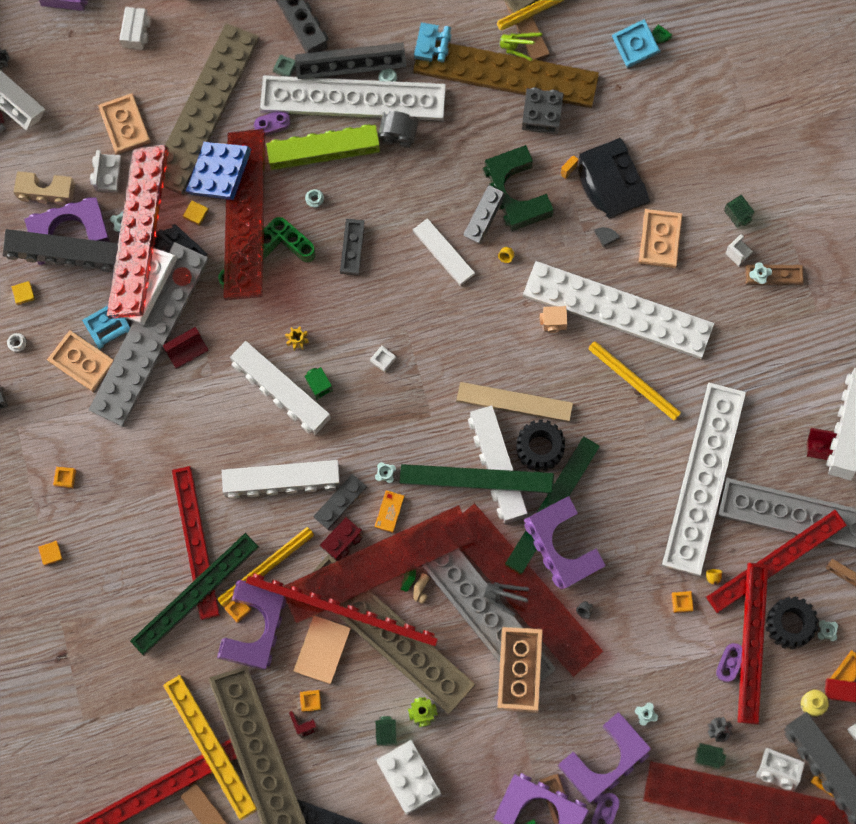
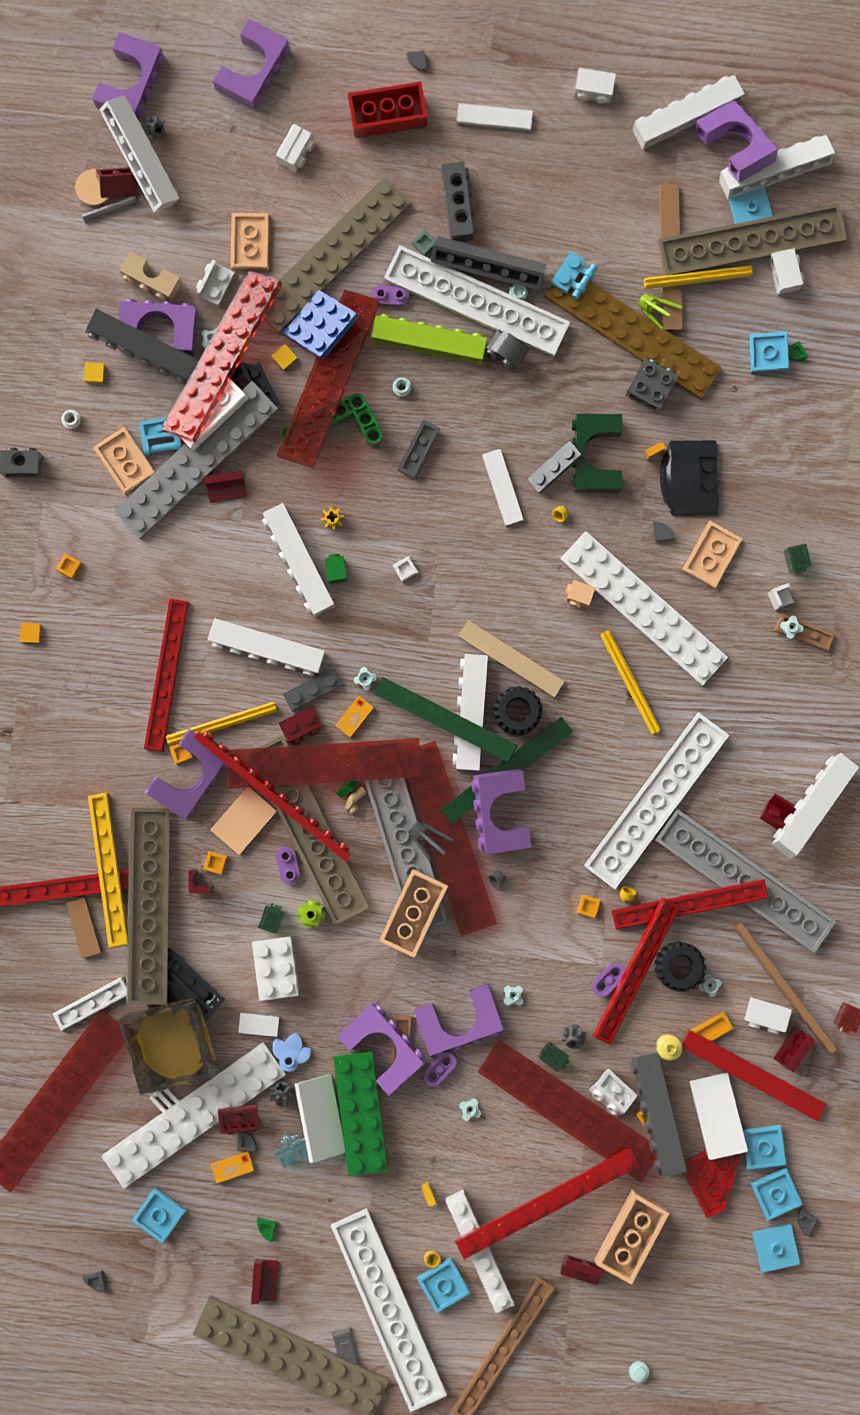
camera: 15 degrees right, 10 degrees up
(182, 276) = (245, 418): clear red plate -> none
(194, 594) = (147, 724): dark green tile -> none
(381, 675) = (288, 865): none -> medium lavender plate

